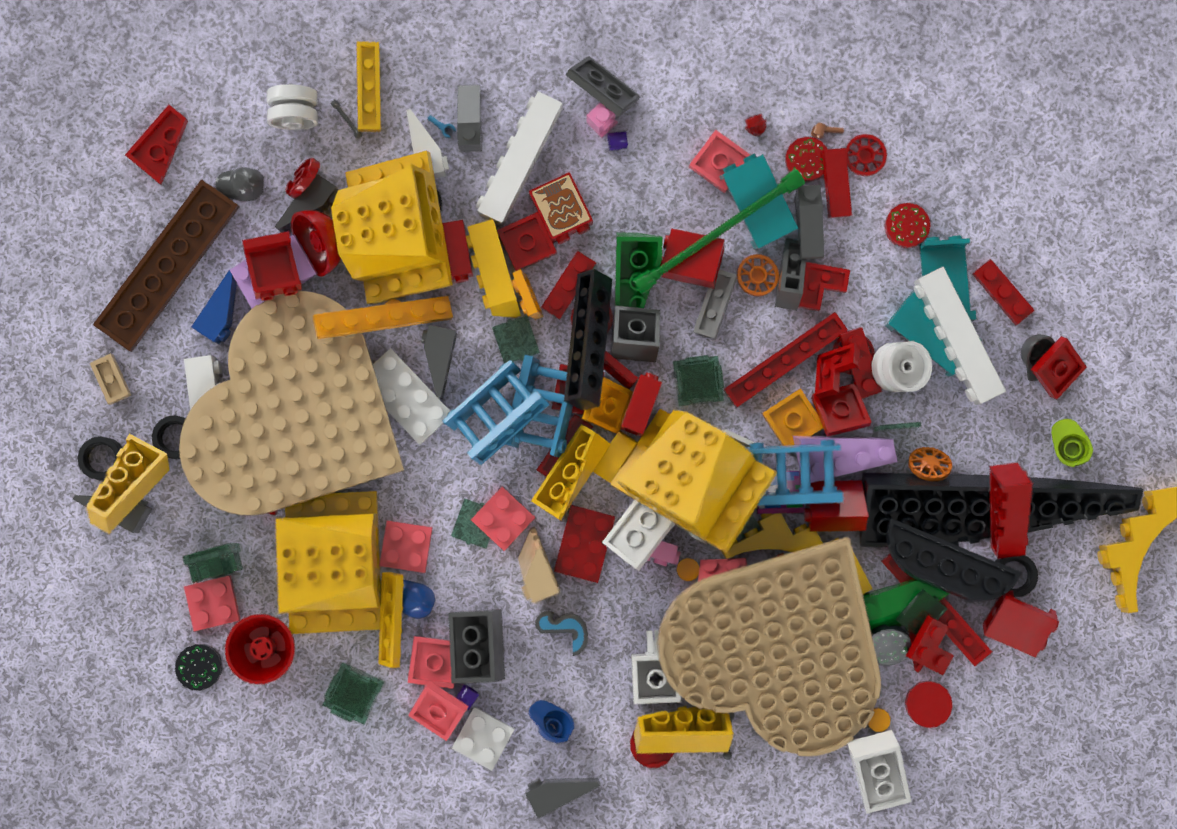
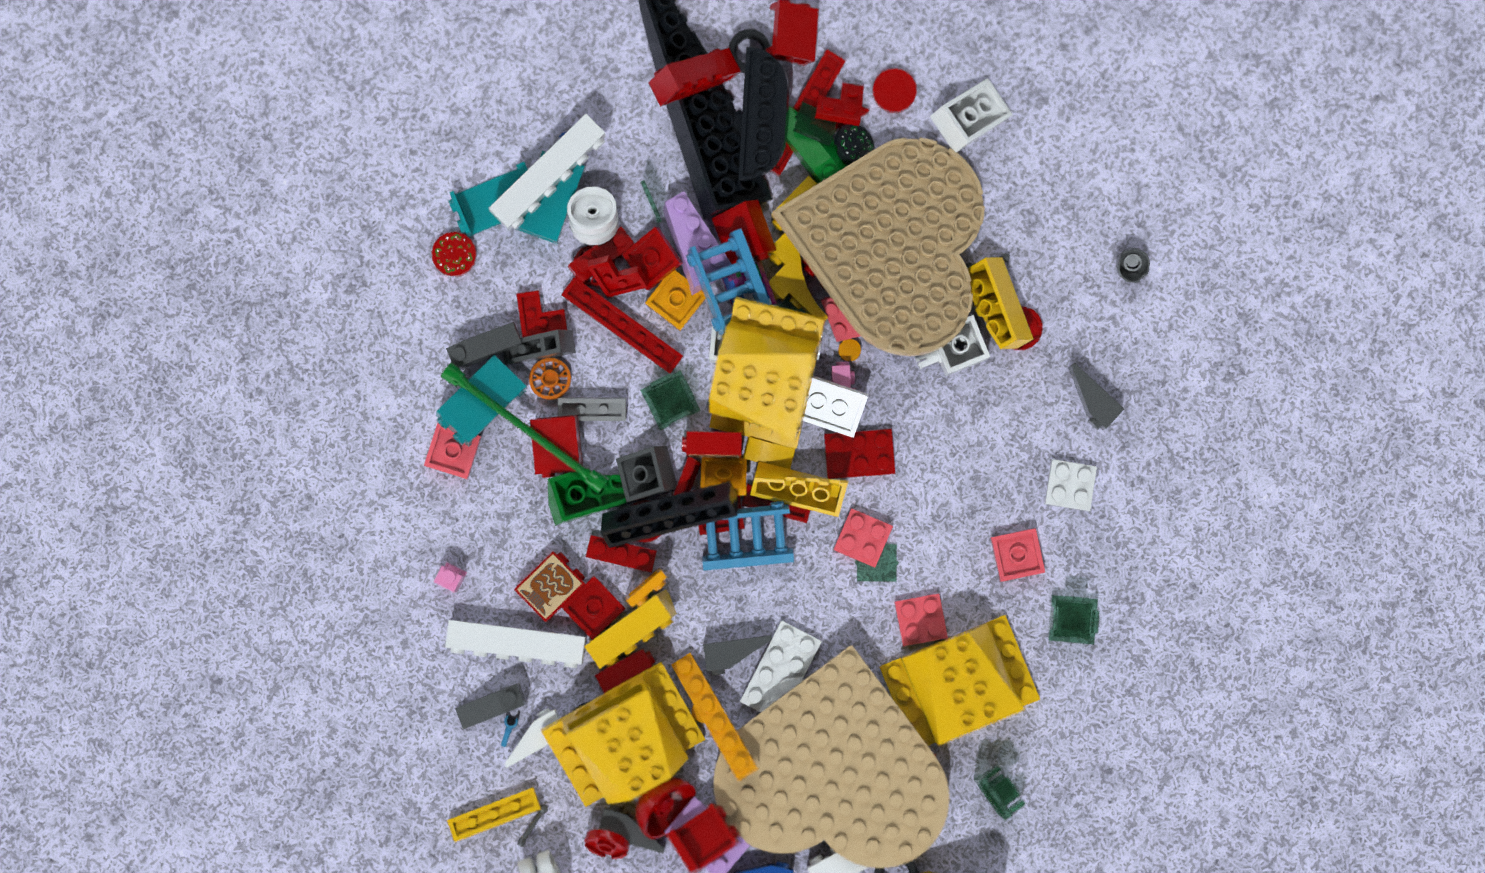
camera: 110 degrees left, 0 degrees up
(198, 667) = (1100, 773): black tile -> none
(212, 603) = (1038, 782): coral plate -> none
(248, 646) = (1076, 718): red piece -> none
(390, 619) = (993, 608): yellow plate -> none
(417, 599) = (966, 597): blue piece -> none
(438, 710) = (1060, 534): coral plate -> none
(467, 696) = (1038, 513): dark purple hose -> none
(476, 646) = (989, 520): dark grey slope -> none
(507, 428) = (767, 556): dark azure fence -> none
(515, 339) = (690, 585): clear green piece -> none
(536, 570) = (898, 490): tan wedge -> none
(544, 714) = (1026, 435): blue piece -> none
(564, 624) = (940, 447): animal -> none
(603, 86) = (418, 586): dark grey tile -> none
(617, 140) = (465, 556): dark purple hose -> none
(755, 125) = (405, 429): red plate -> none
(806, 157) = (421, 369): red tile -> none
(820, 128) = (389, 367): nougat hand -> none
(836, 183) = (436, 333): red tile -> none
(866, 155) = (399, 315): red wheel -> none
(880, 720) = (924, 129): light orange tile -> none
(930, 464) = (674, 160): orange wheel -> none
(1003, 292) = (487, 144): red plate -> none
(1033, 350) = (538, 93): dark grey piece -> none
(1058, 368) = (543, 71): red plate -> none
(1071, 443) = (610, 38): lime piece -> none

